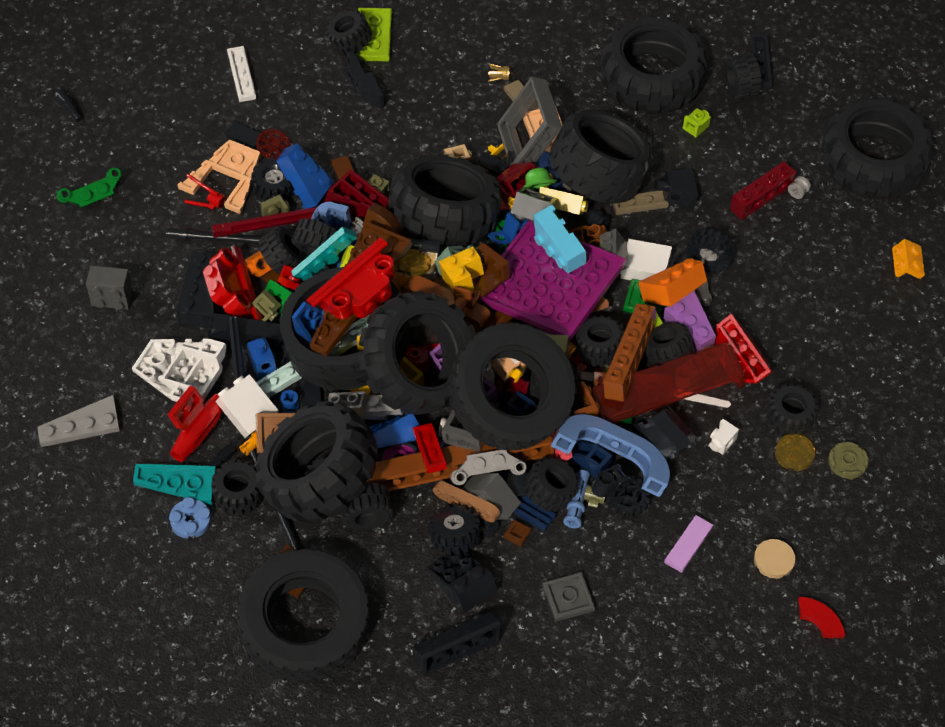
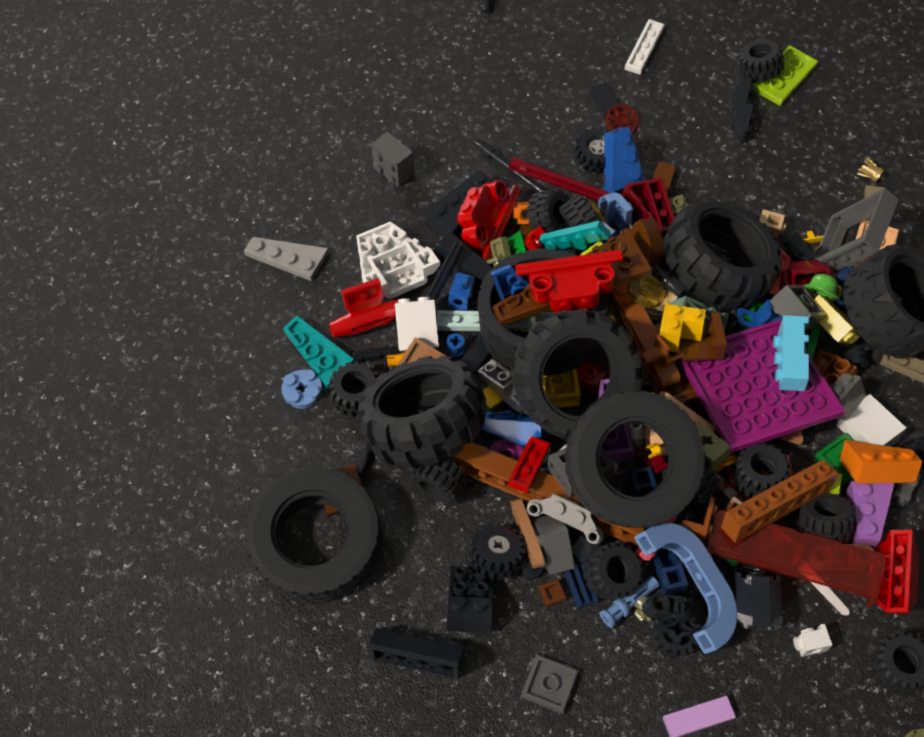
camera: 40 degrees right, 5 degrees up
(91, 193) = (448, 75): green plate -> none
(215, 198) = (537, 136): red plant -> none
(232, 160) = (576, 114): light nougat wing -> none
(274, 206) = (579, 172): olive bracket -> none
(795, 452) = (875, 705): clear yellow tile -> none

